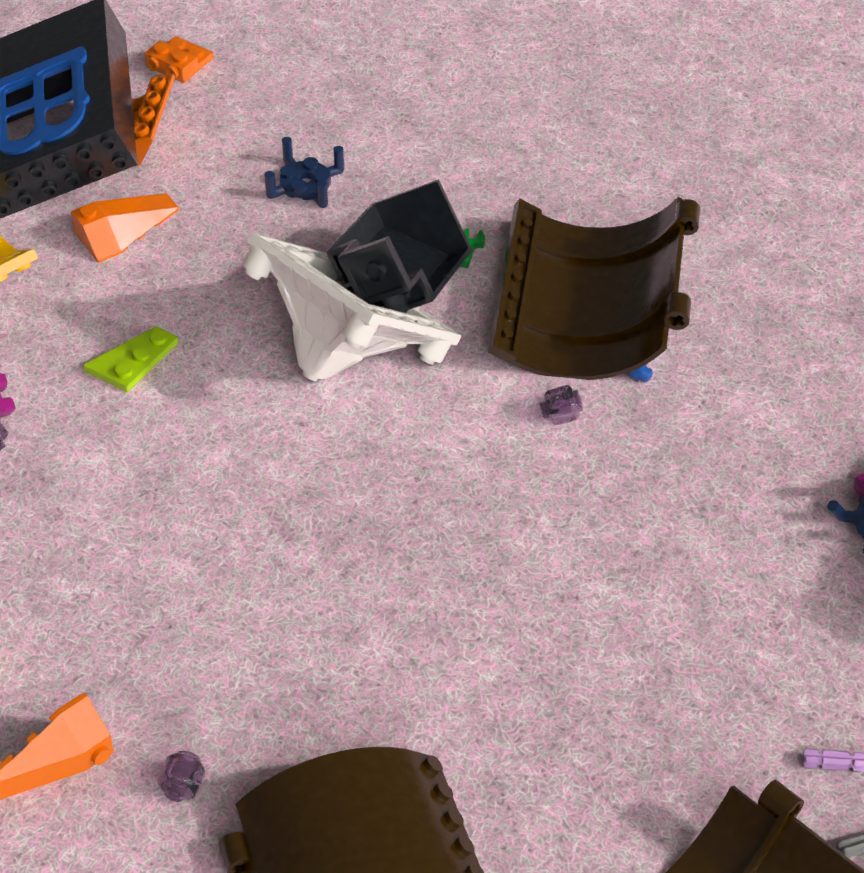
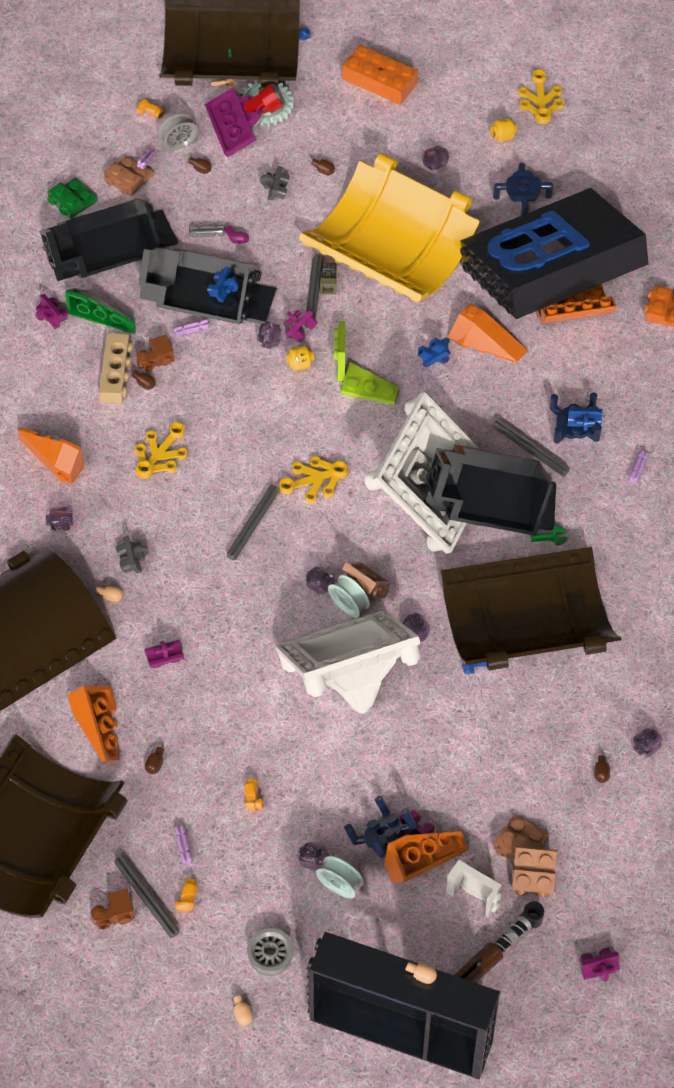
camera: 70 degrees right, 10 degrees up
(47, 412) = (299, 358): none -> yellow head
(64, 362) = (339, 349): none -> lime wing
(117, 622) = (160, 453): none -> yellow plant
(126, 270) = (435, 353): none -> blue hips
(259, 425) = (315, 477): none -> yellow plant
(295, 692) = (135, 554): none -> dark grey hips
(302, 541) = (252, 522): none -> dark grey axle
(314, 157) = (584, 416): none -> blue hips
(325, 226) = (531, 447): none -> dark grey axle
(352, 739) = (110, 593): none -> light nougat cylinder
(402, 143) = (638, 466): none -> lavender axle
(441, 485) = (319, 579): none -> clear purple head
(477, 428) = (370, 581): none -> nougat plate
(490, 453) = (349, 596): none -> light aqua wheel
(496, 698) = (164, 654): none -> magenta hips
(559, 818) = (93, 711): none -> orange wedge
(606, 453) = (351, 656): none -> white piece
(679, 760) = (154, 761): none -> reddish brown cylinder
(777, 654) = (251, 793): none -> light orange arm
(815, 236) = (647, 742): none -> clear purple head
(841, 289) = (602, 770): none -> reddish brown cylinder

